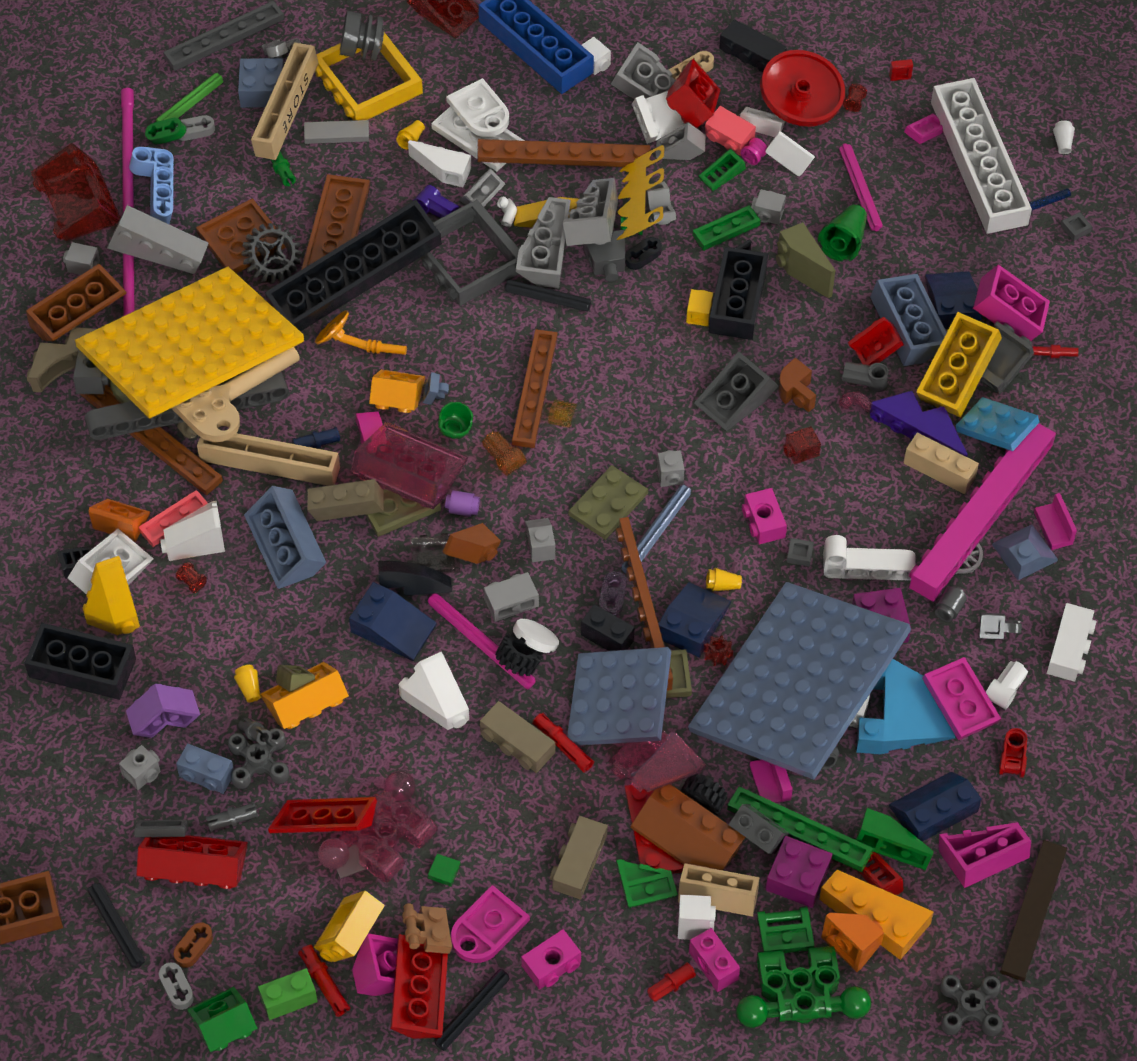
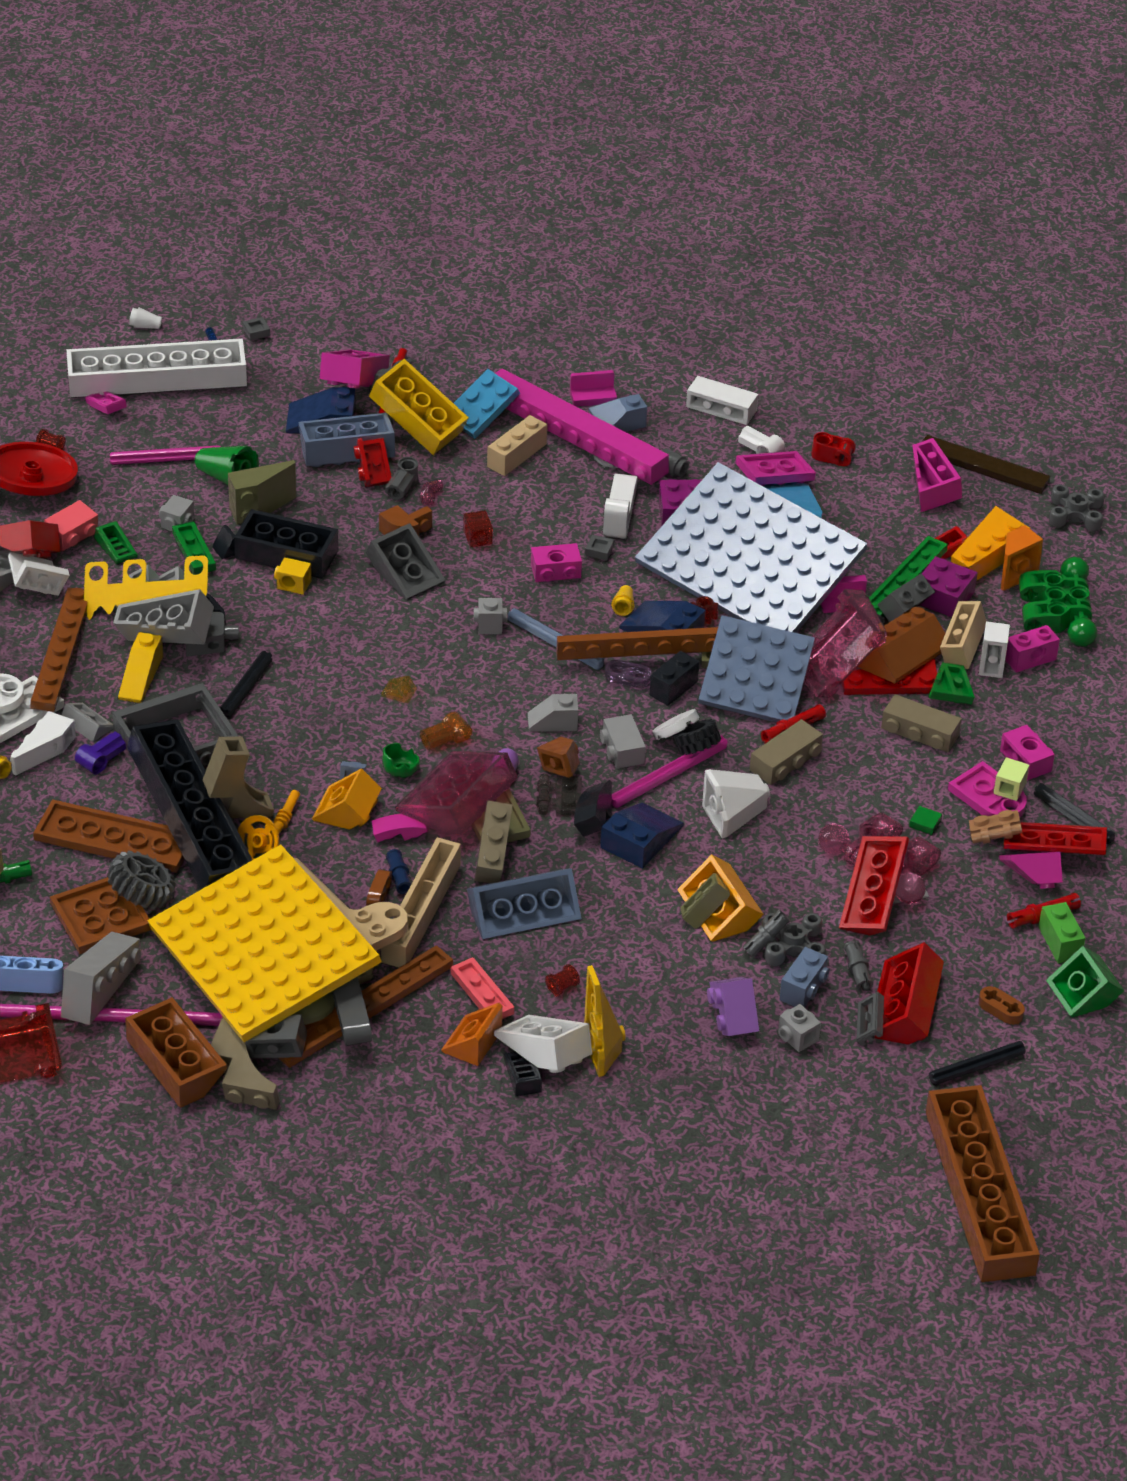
camera: 85 degrees left, 15 degrees down
(80, 661) = (663, 1068): black brick -> none
(81, 258) = (98, 1050): light grey brick -> none
(170, 988) = (1046, 1021): light grey beam -> none
(194, 534) = (508, 962): white slope -> none
(248, 682) = (700, 943): yellow cone -> none
(288, 426) = (379, 887): none -> dark orange beam
(349, 926) = (974, 866): yellow window -> none
(367, 276) = (226, 780): none -> dark tan arch
(493, 937) = (1011, 779): none -> yellowish green brick
(509, 210) = (121, 700): white arm -> none
(534, 388) = (367, 702): dark orange plate -> none
(543, 250) = (200, 662): light grey wedge -> none
(608, 500) = (516, 668): olive plate -> none
(671, 982) = (1049, 681): red axle -> none
(682, 143) = (75, 558): light grey slope -> none
(754, 151) = (105, 514): dark pink wheel -> none
(765, 122) = (55, 505): white slope -> none
(786, 937) = (1007, 604): green plate -> none
(789, 154) = (115, 488): white slope -> none
(892, 839) = (913, 528): green slope -> none
(901, 70) = (25, 406): red tile -> none
(906, 417) = (470, 452): dark purple slope -> none
(937, 805) = (881, 500): dark blue slope -> none
(994, 625) = (698, 440): plate -> none

